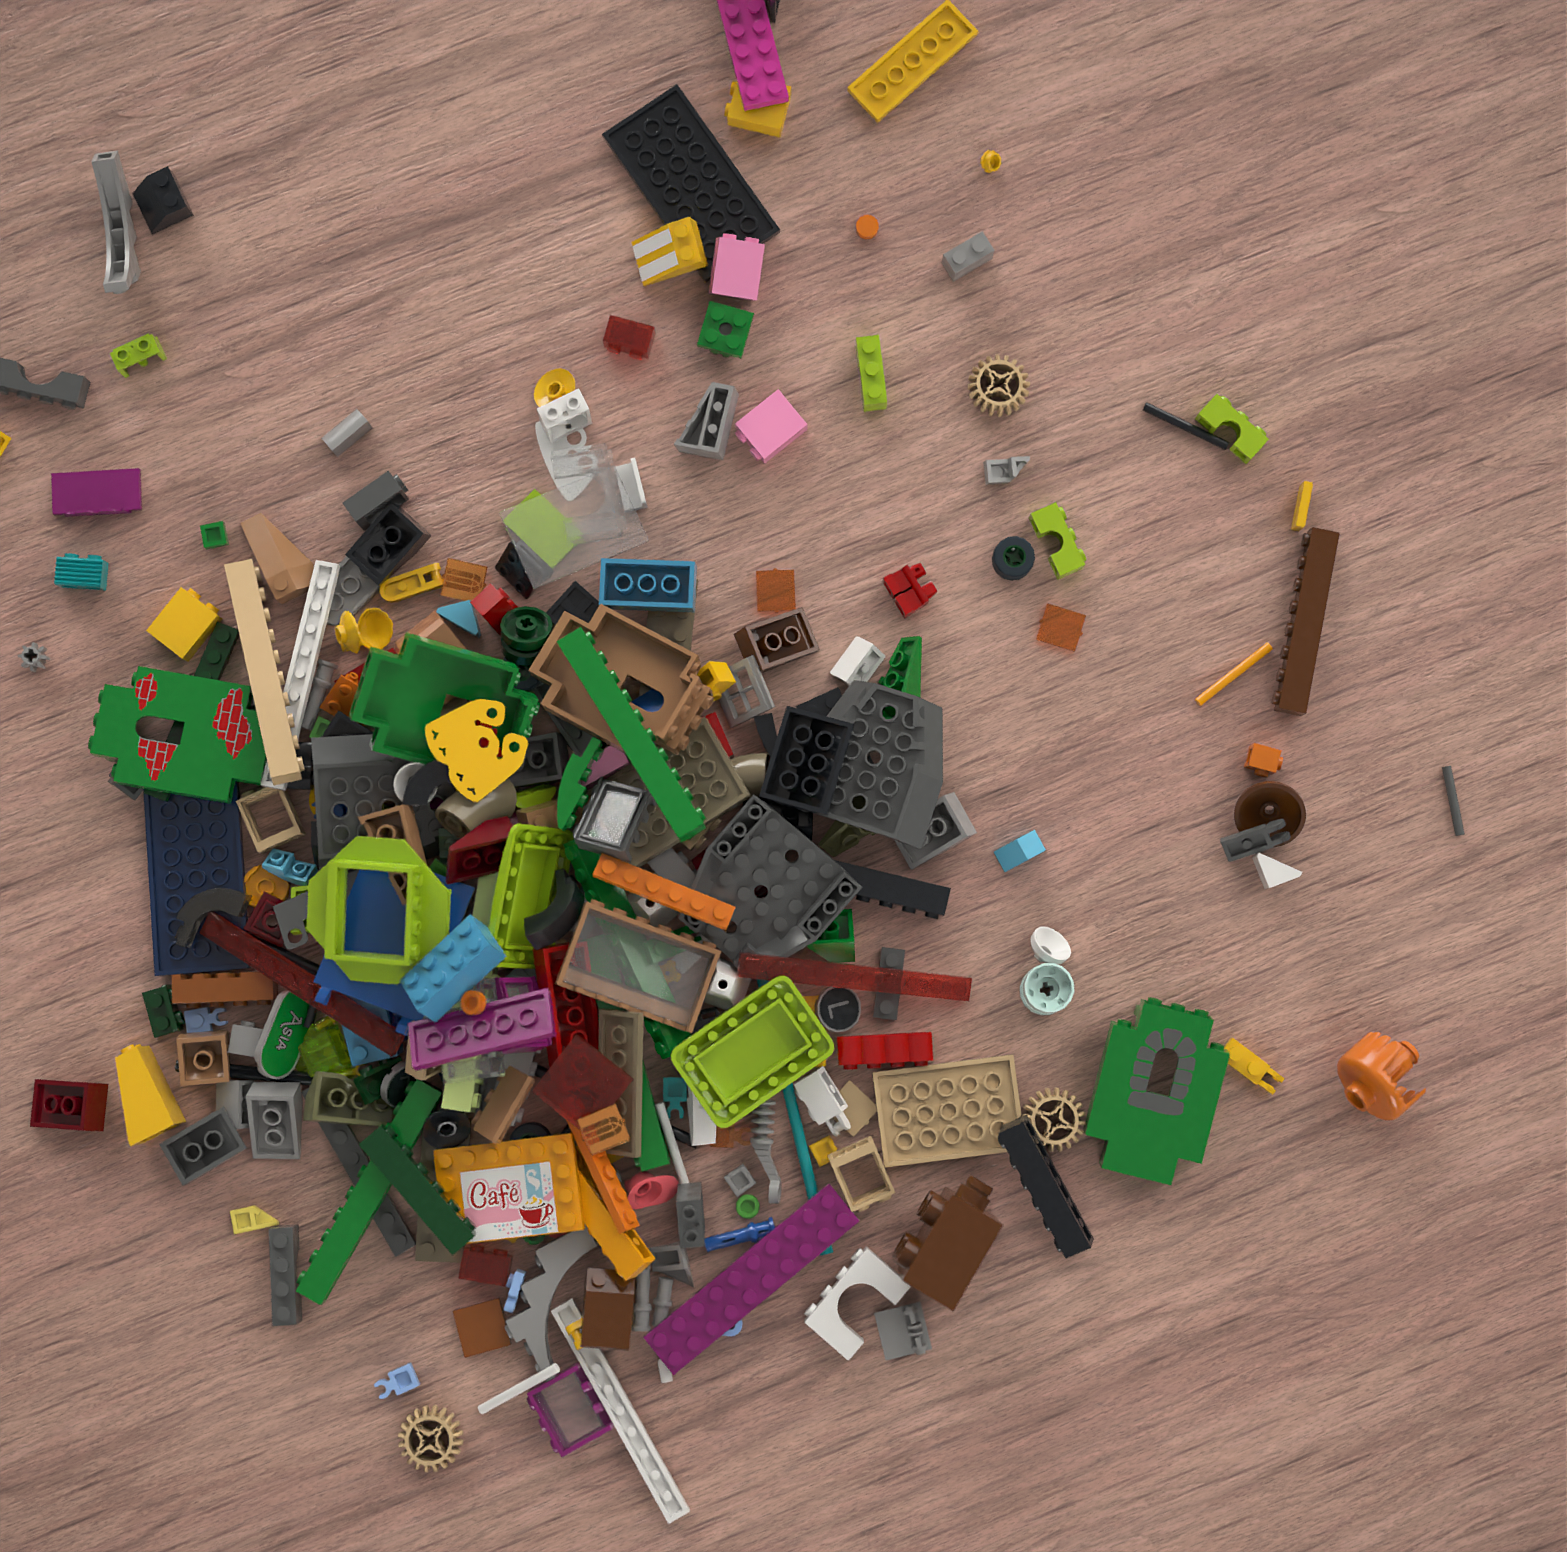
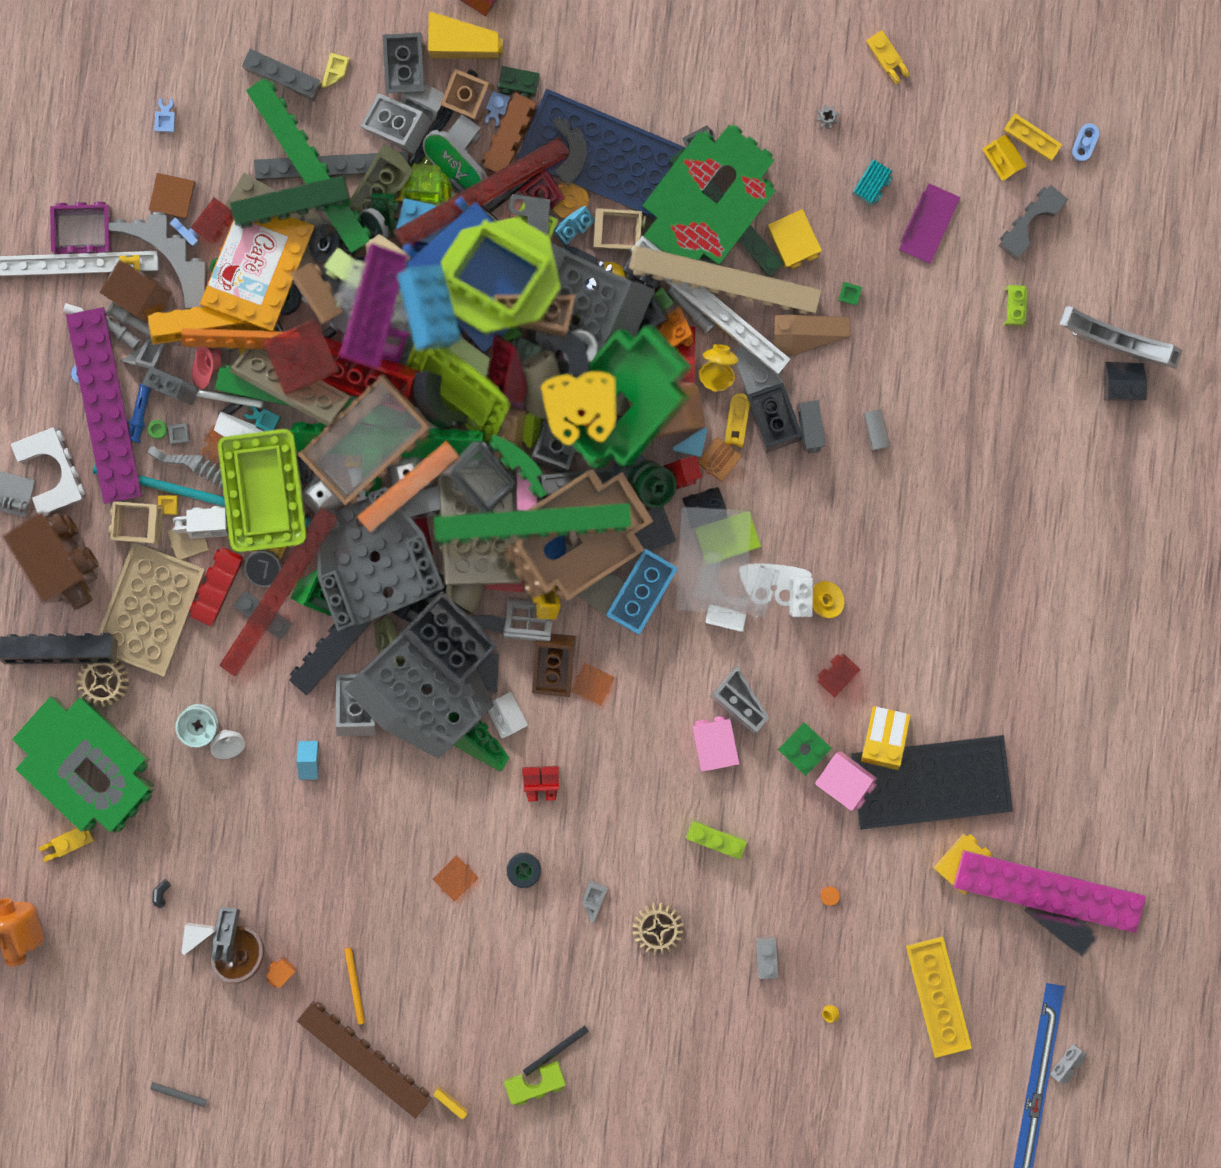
camera: 120 degrees right, 5 degrees up
(422, 1431) = (120, 117): tan gear -> none
(473, 1002) = (396, 309): orange tile -> none
(519, 1388) = (114, 200): white bar -> none
(603, 1129) = (261, 355): clear orange piece -> none
(1051, 521) = (503, 911): lime arch -> none
(1250, 937) = (157, 895): none -> black arm

